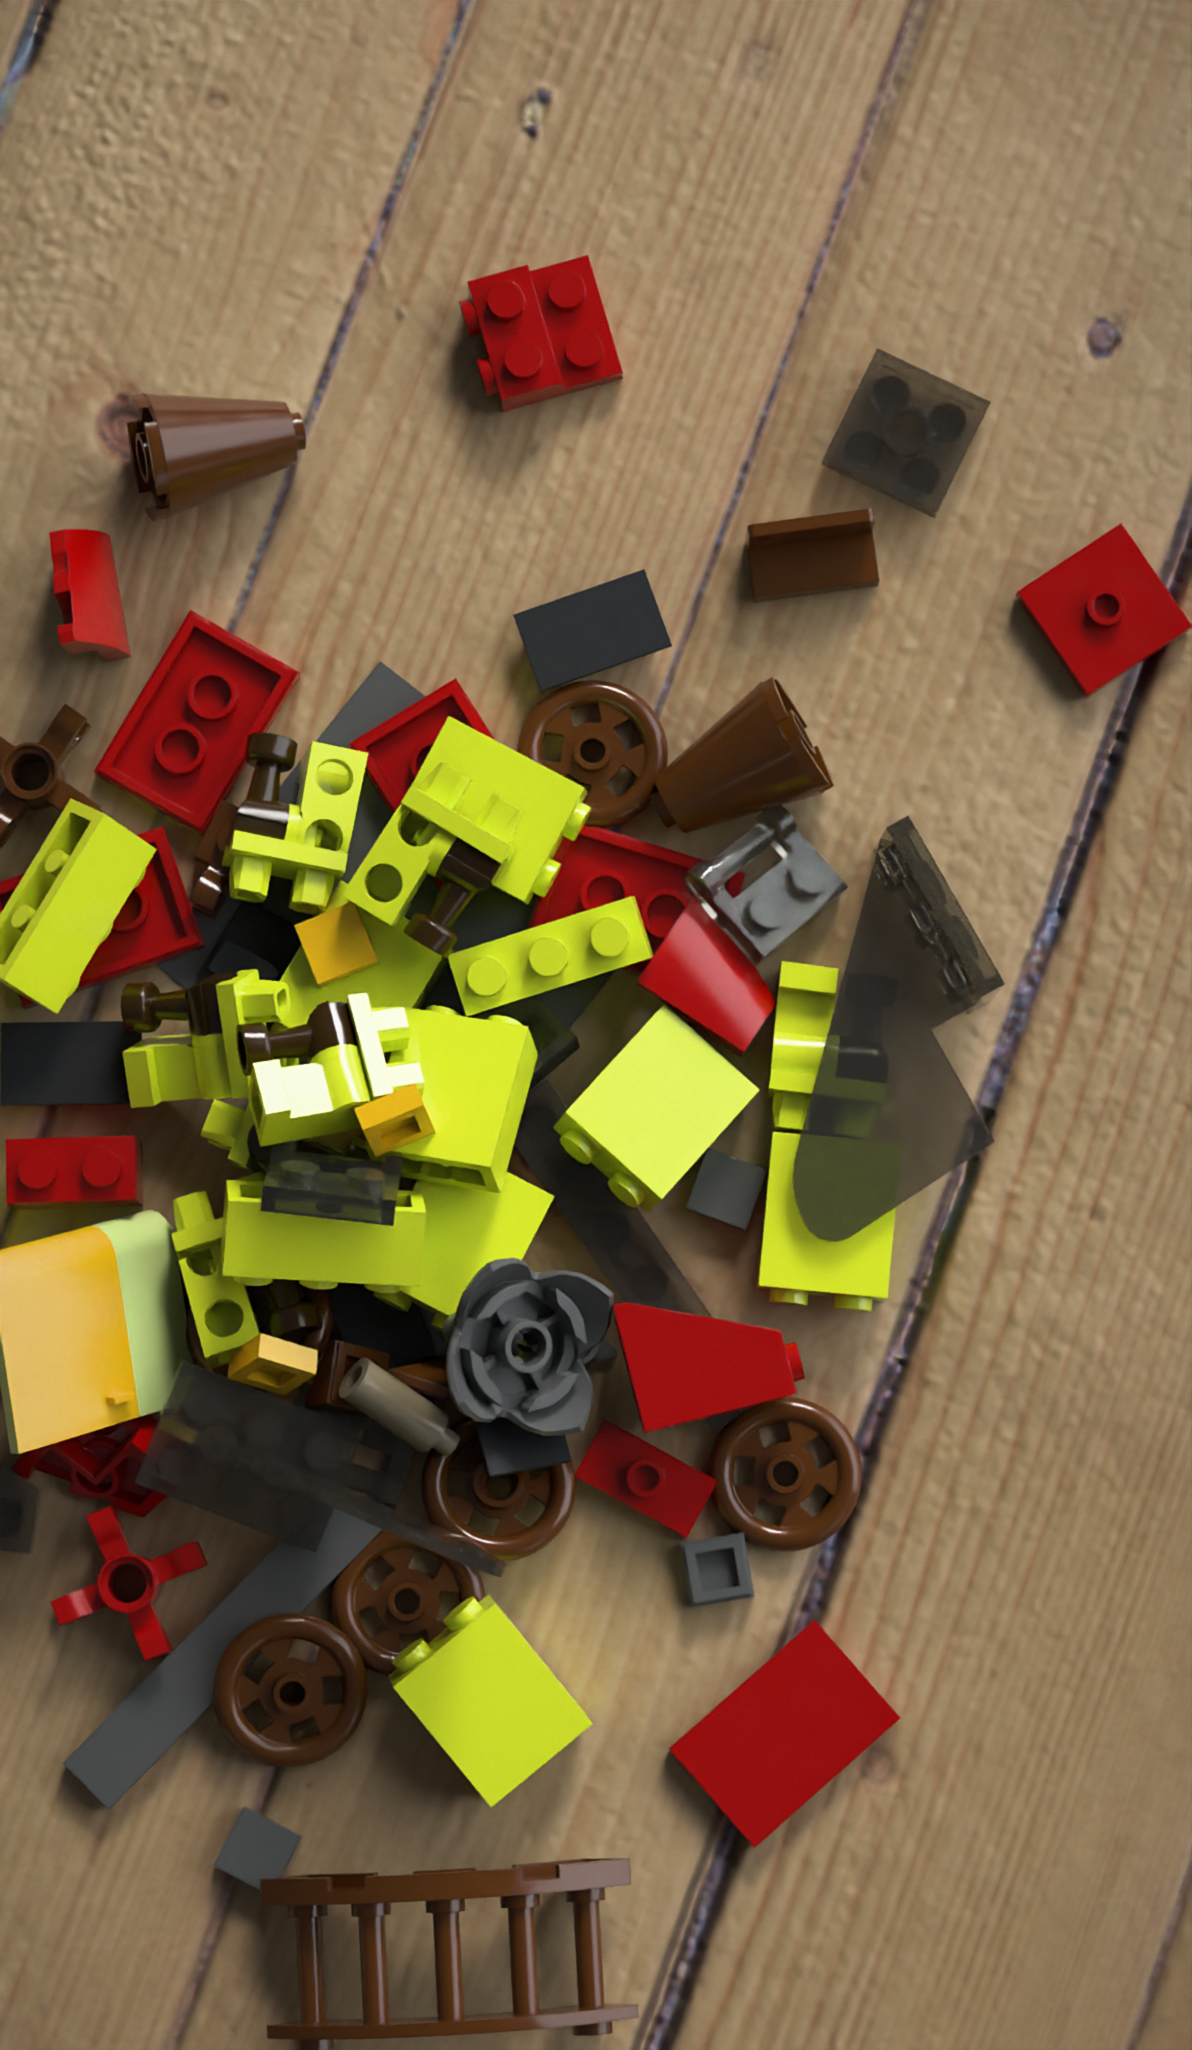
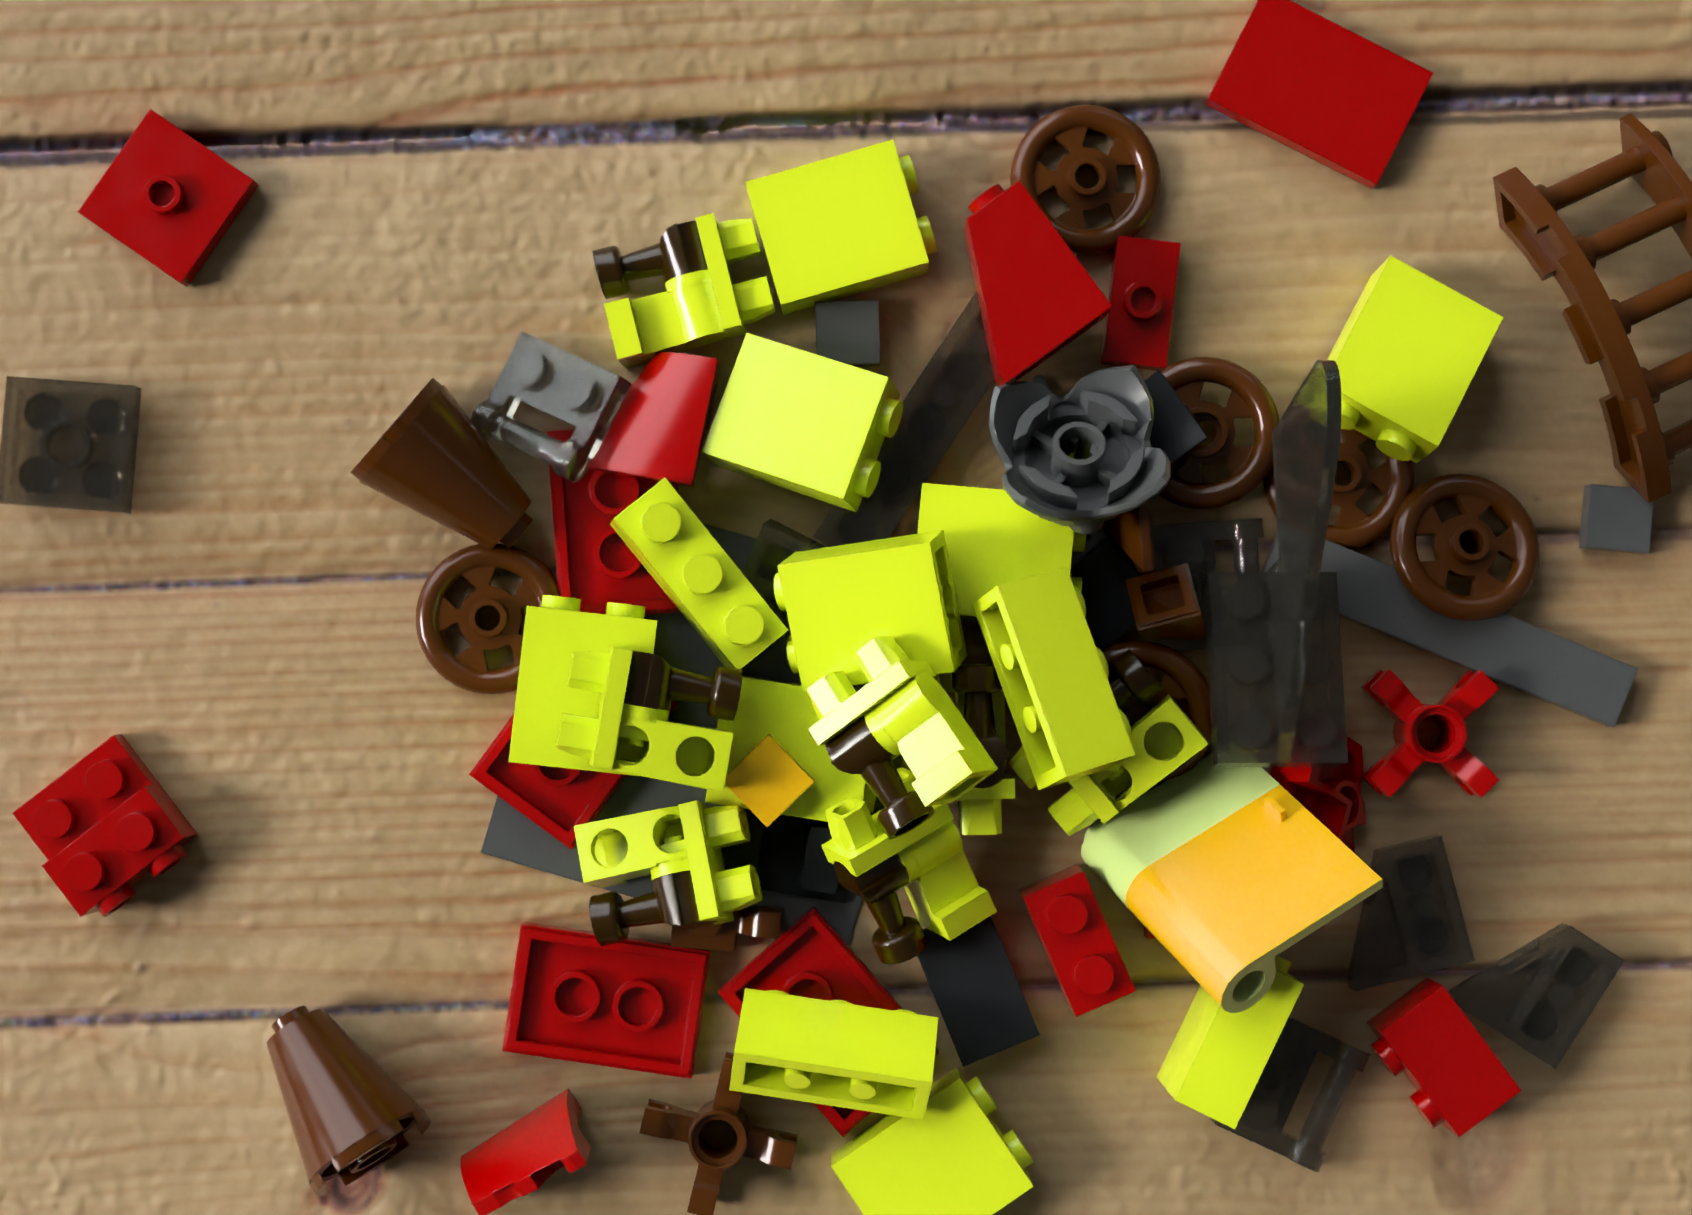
camera: 110 degrees left, 5 degrees up
(272, 1364) = (1187, 678): yellow tile -> none
(332, 1186) = (1010, 683): clear smoke plate -> none
(394, 1120) = (921, 651): yellow tile -> none
(397, 1408) = (1177, 548): dark tan cylinder -> none
(592, 630) = (373, 664): black piece -> none
(717, 1569) = (1196, 206): dark grey tile -> none
(812, 555) = (220, 487): reddish brown panel -> none
(885, 1097) = (705, 213): clear smoke piece -> none

